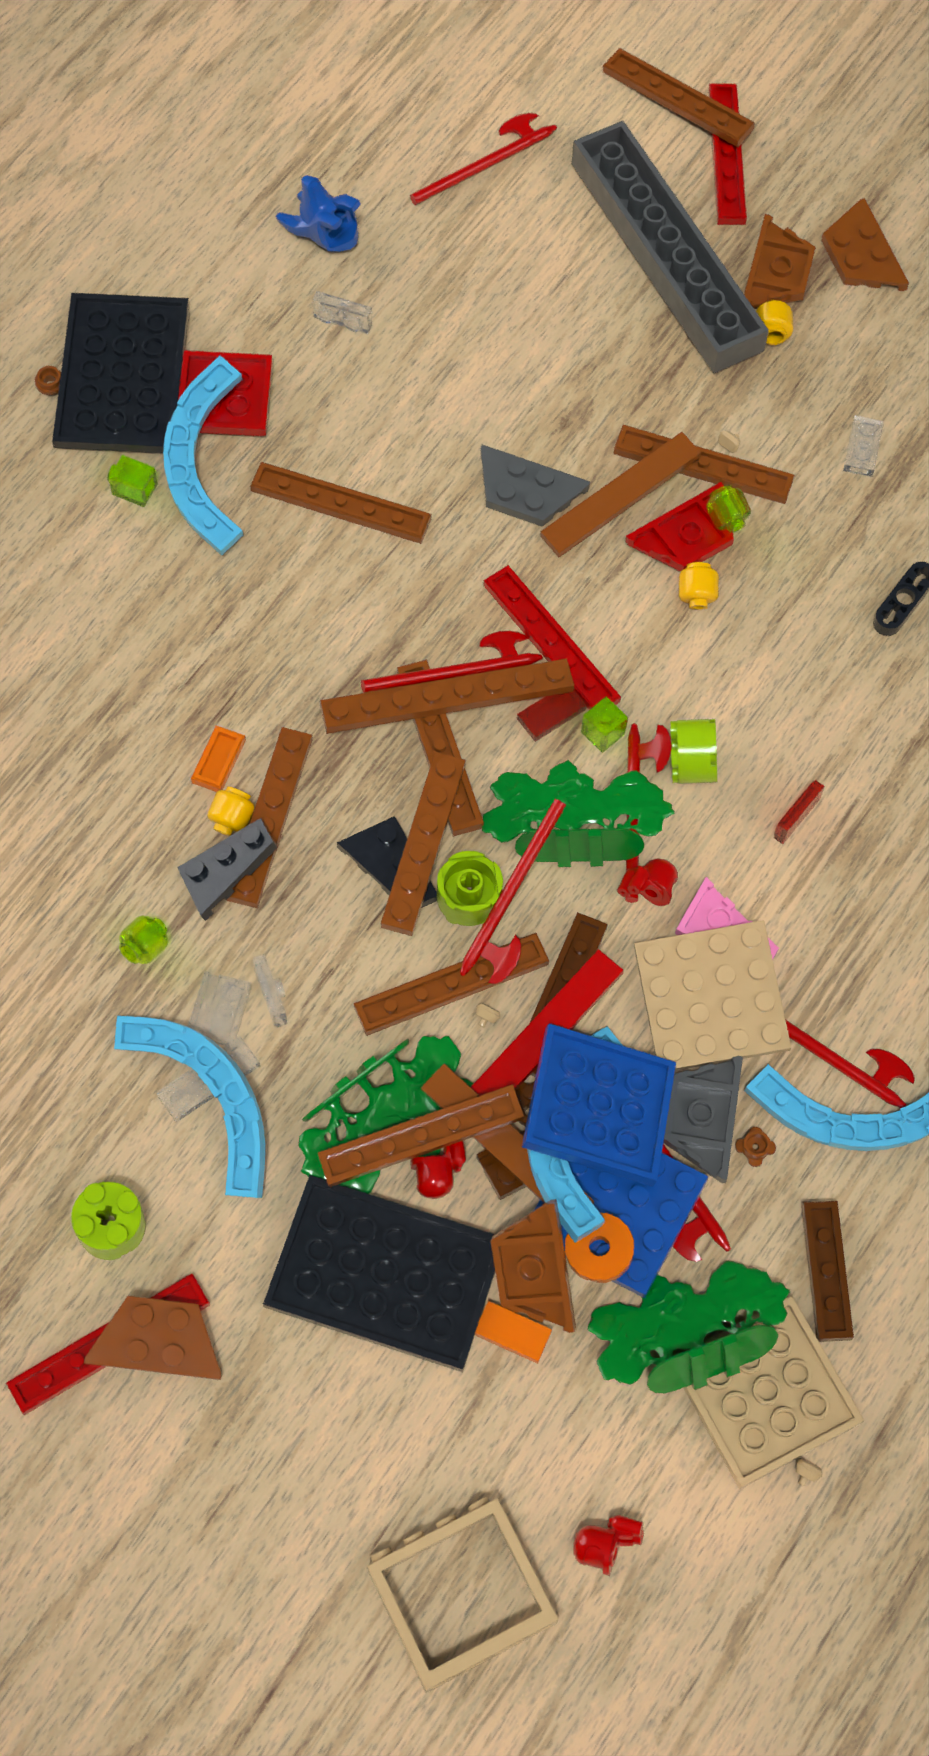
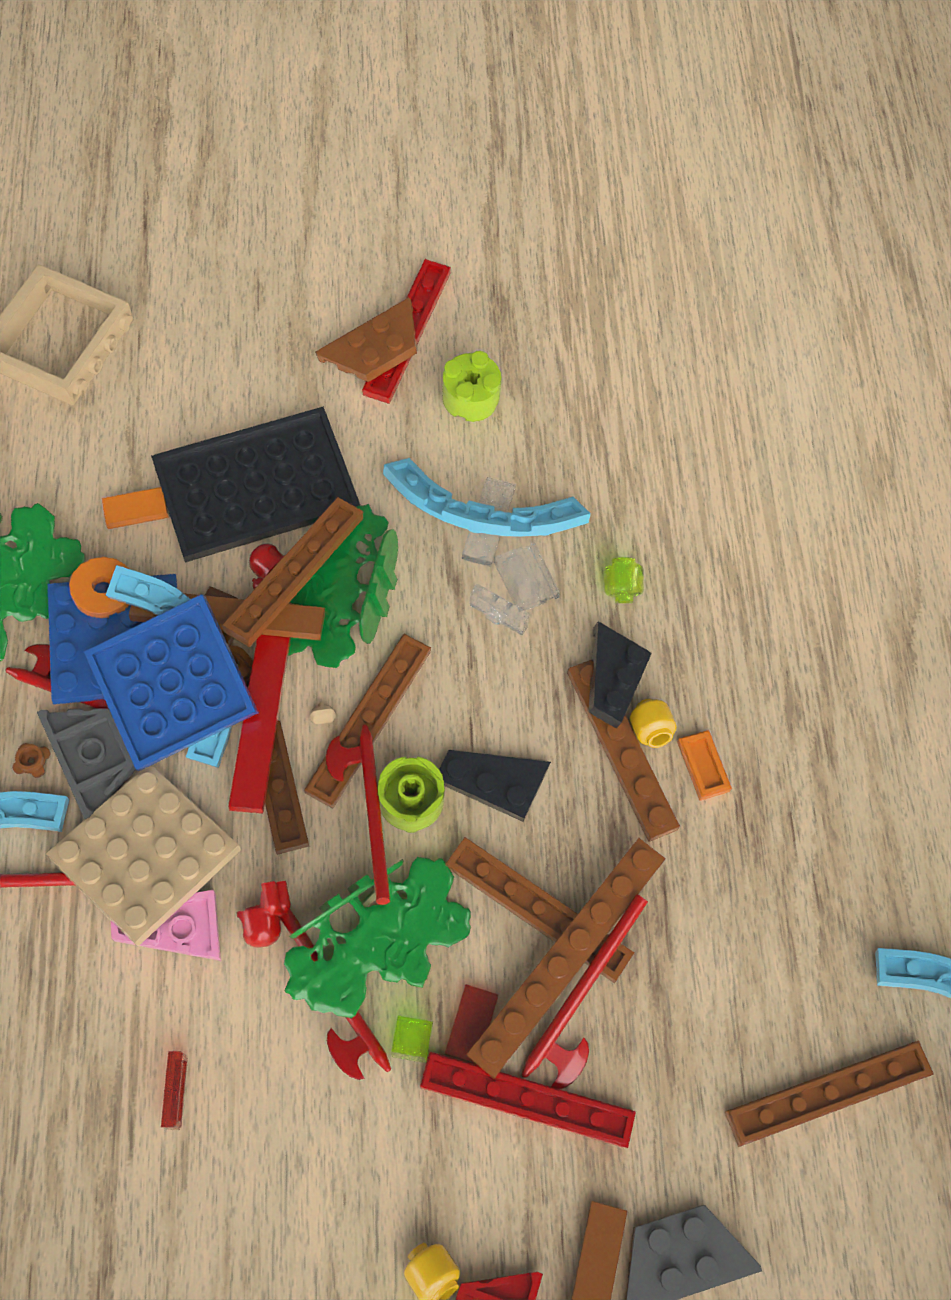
camera: 140 degrees right, 0 degrees up
(423, 844) = (480, 807): dark orange plate -> none
(534, 1268) = (143, 544): dark orange wing -> none
(694, 751) = (308, 1070): lime brick -> none

